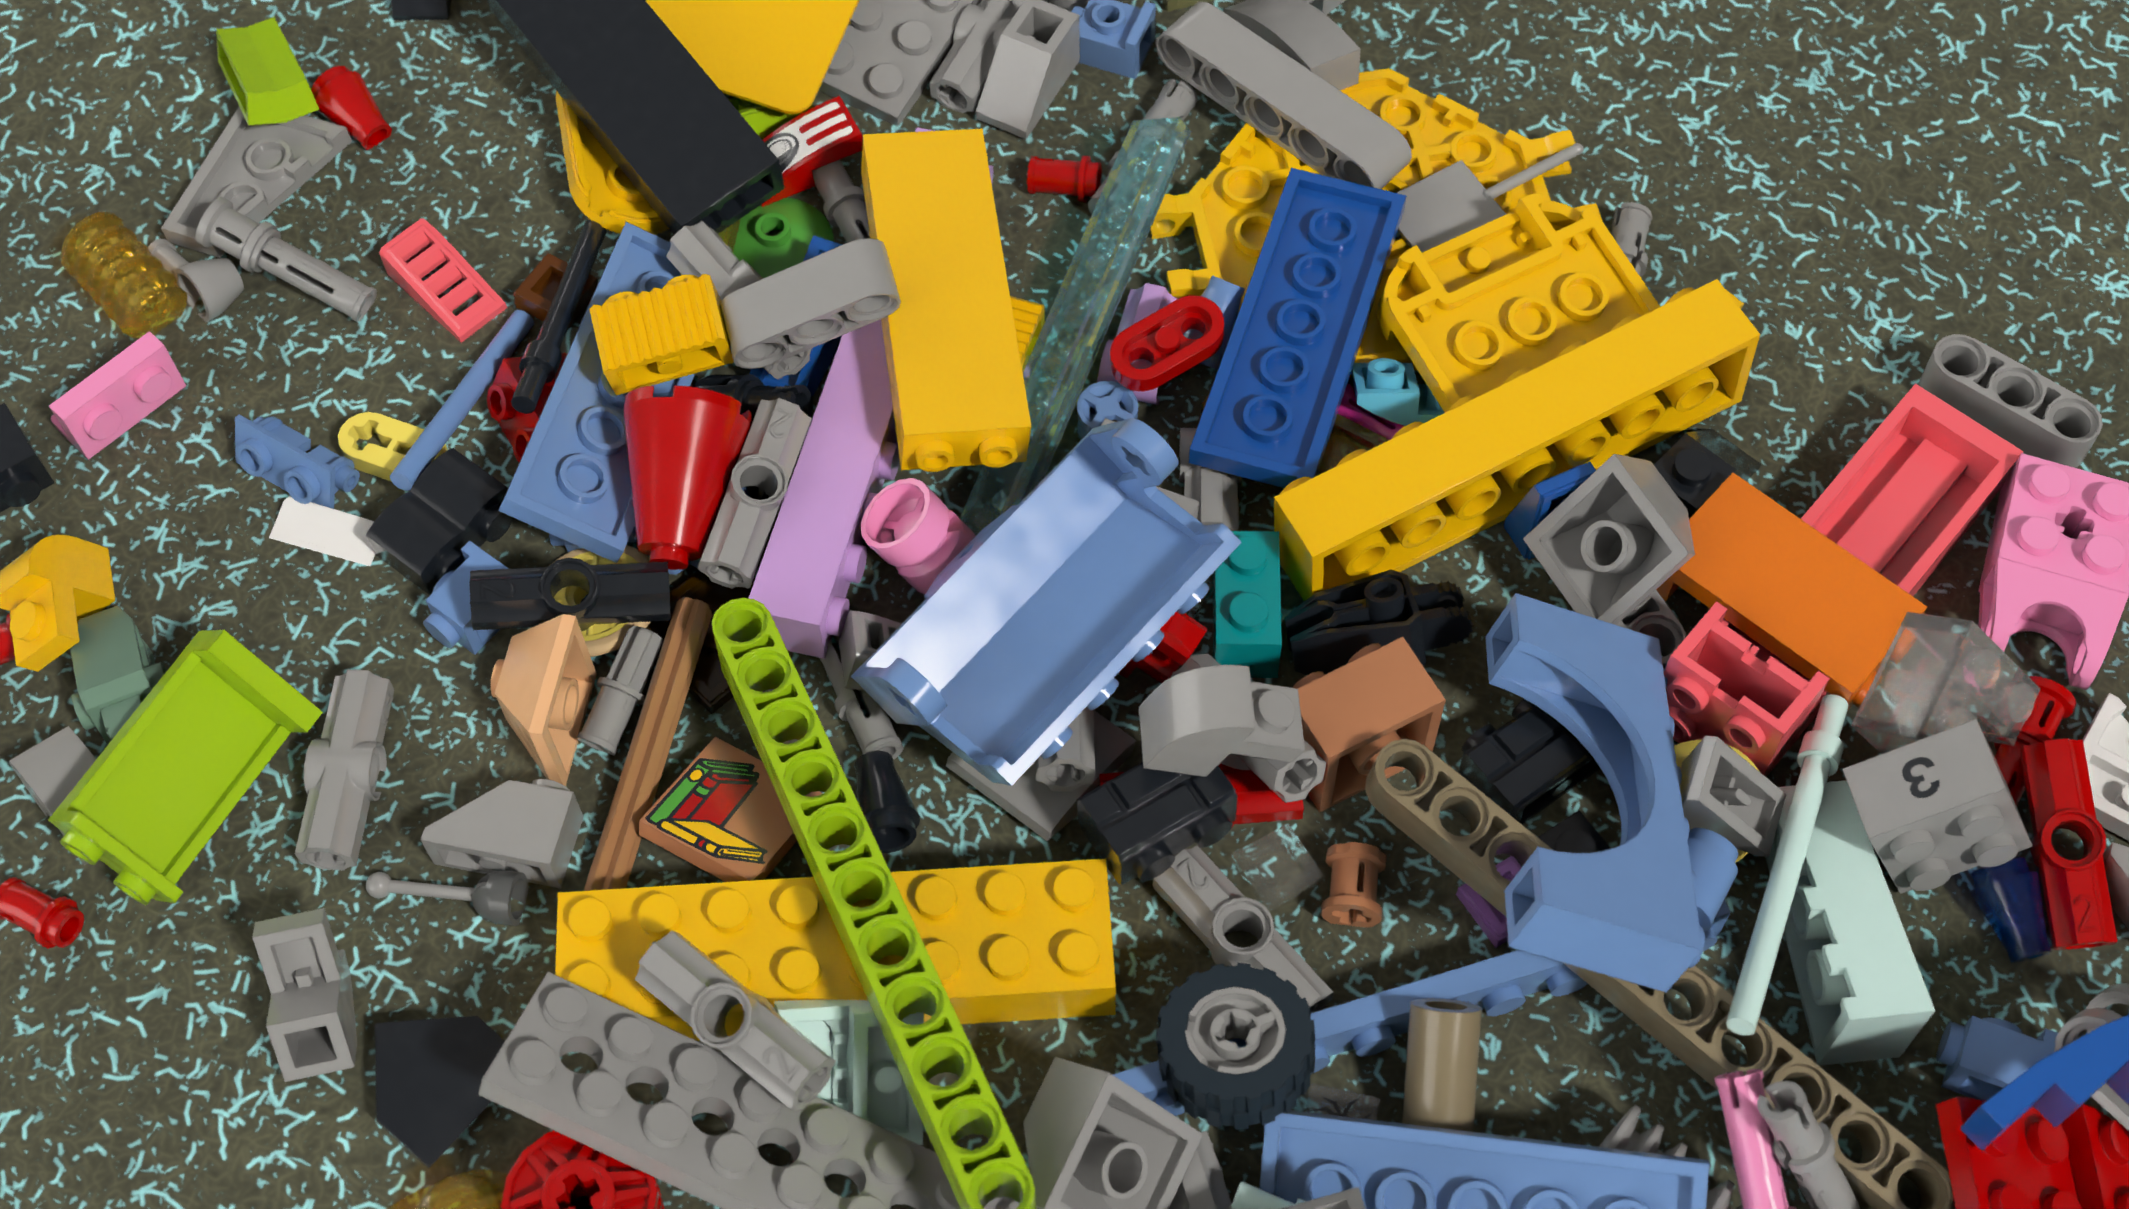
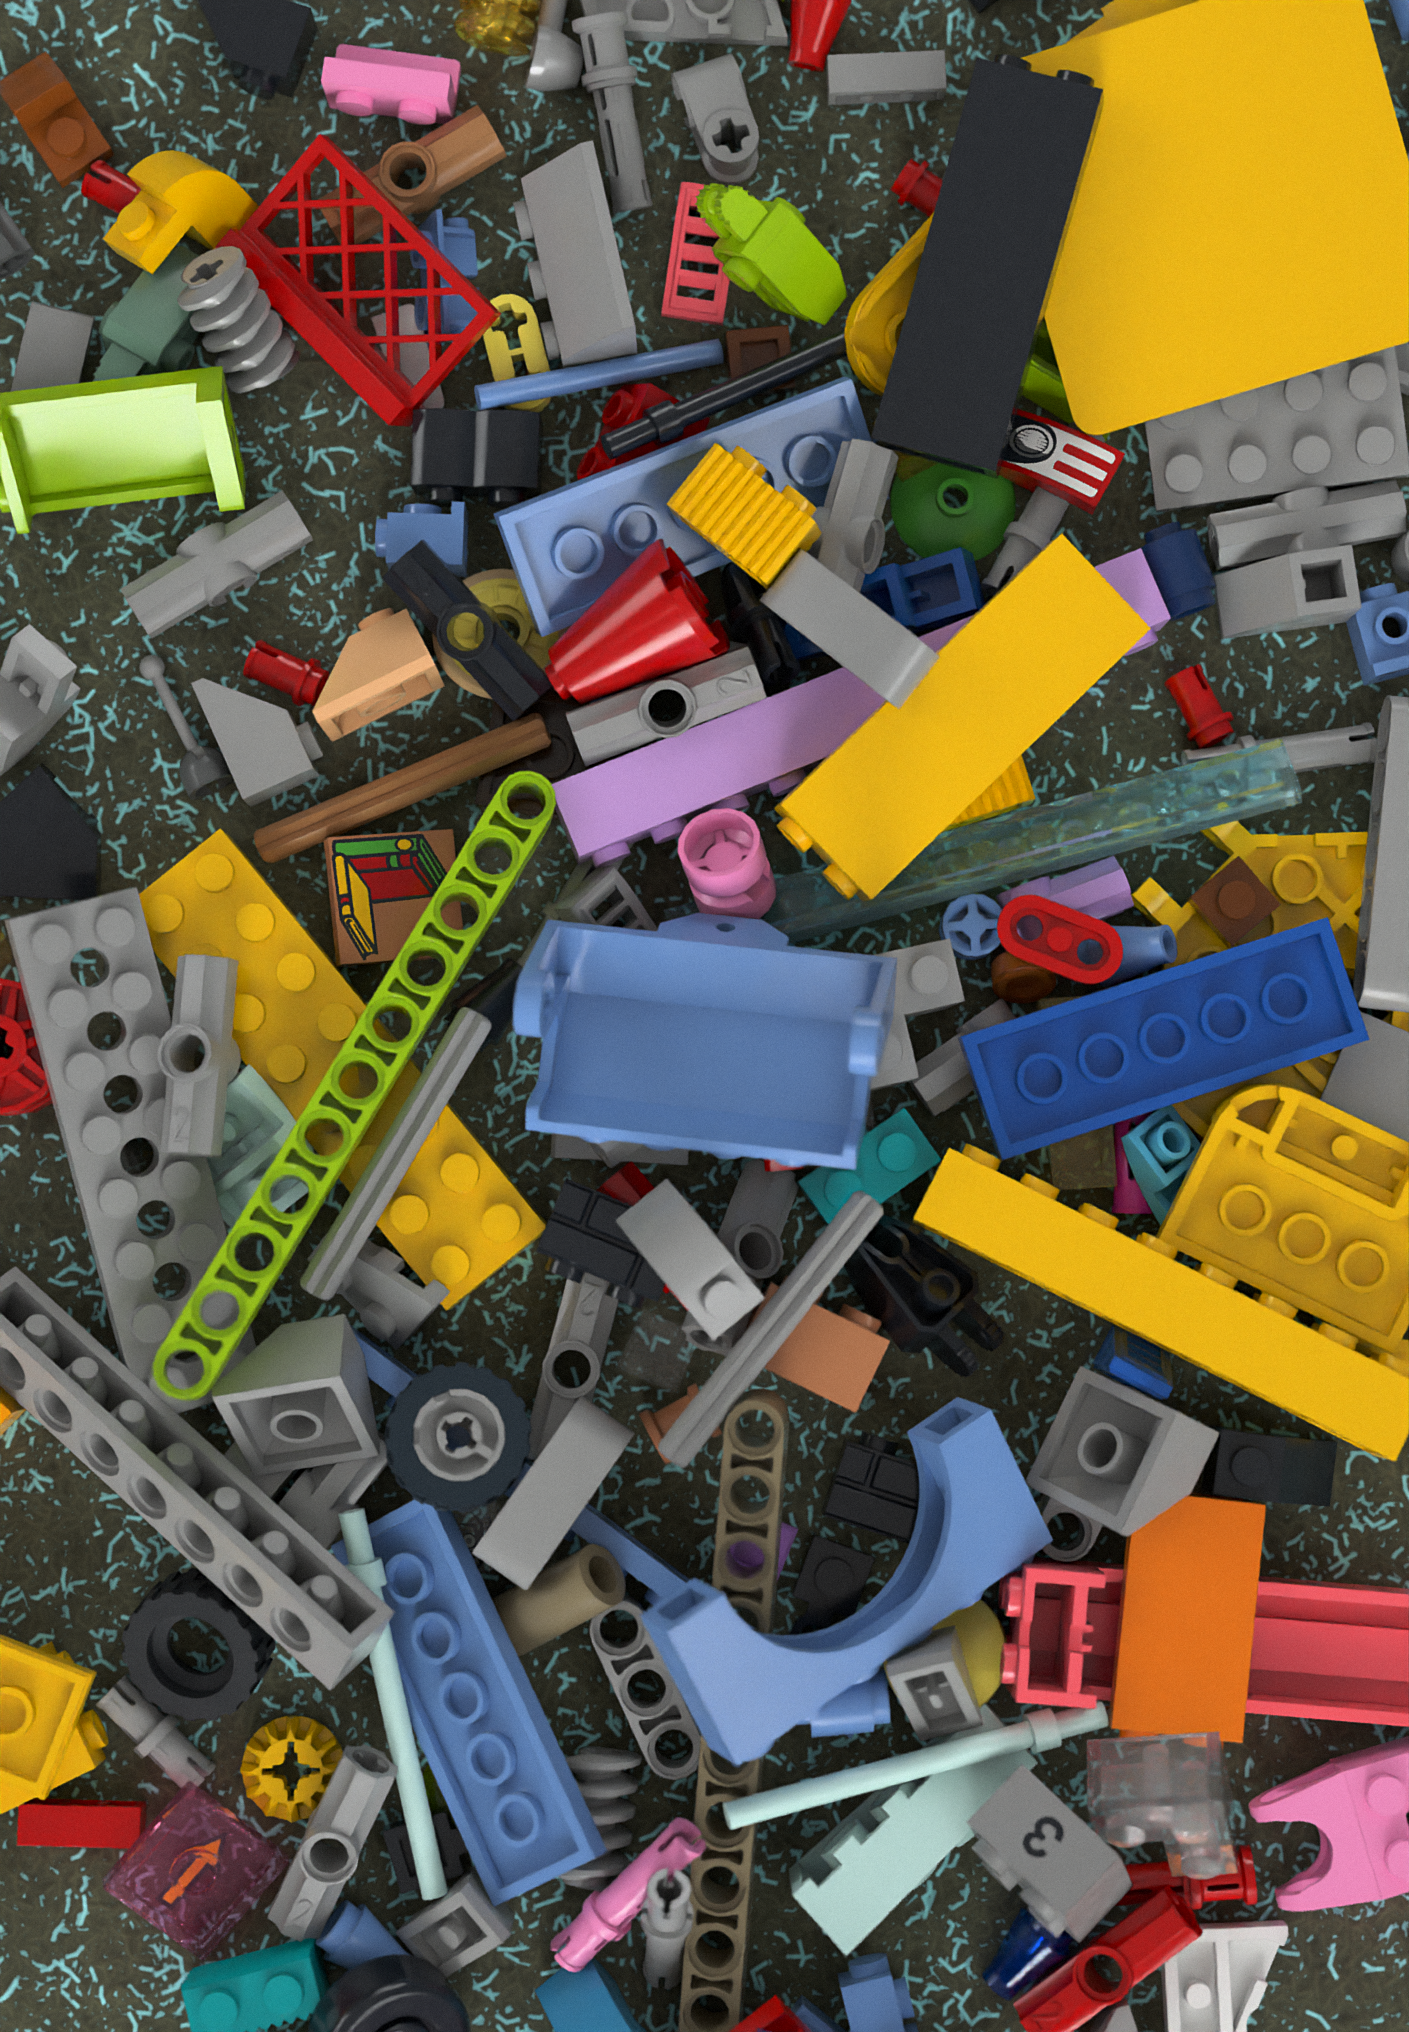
camera: 50 degrees right, 25 degrees up
(171, 598) = (236, 320): none -> light grey piece
(190, 460) = (446, 154): none -> medium nougat piece
(238, 559) = (335, 331): none -> red fence
(356, 205) = (719, 112): none -> light grey piece
(366, 343) = (576, 260): none -> light grey slope
(434, 93) = (886, 77): none -> light grey piece
(479, 776) = (286, 673): none -> red pin
(485, 220) = (772, 253): none -> lime hinge
(533, 118) = (918, 187): none -> red pin
(621, 690) = (435, 725): light grey axle -> none
(949, 114) = (1179, 569): none -> dark blue brick
(950, 928) = (395, 1154): none -> light grey axle
(1070, 1025) = (387, 1301): none -> light grey wing
(1174, 406) = (1019, 980): none -> dark orange tile
(1230, 228) = (1233, 902): none -> reddish brown plate
(1328, 714) = (770, 1329): none -> light grey axle
(1345, 998) = (553, 1493): none -> light grey beam
(1601, 1049) = (650, 1717): none -> light grey beam

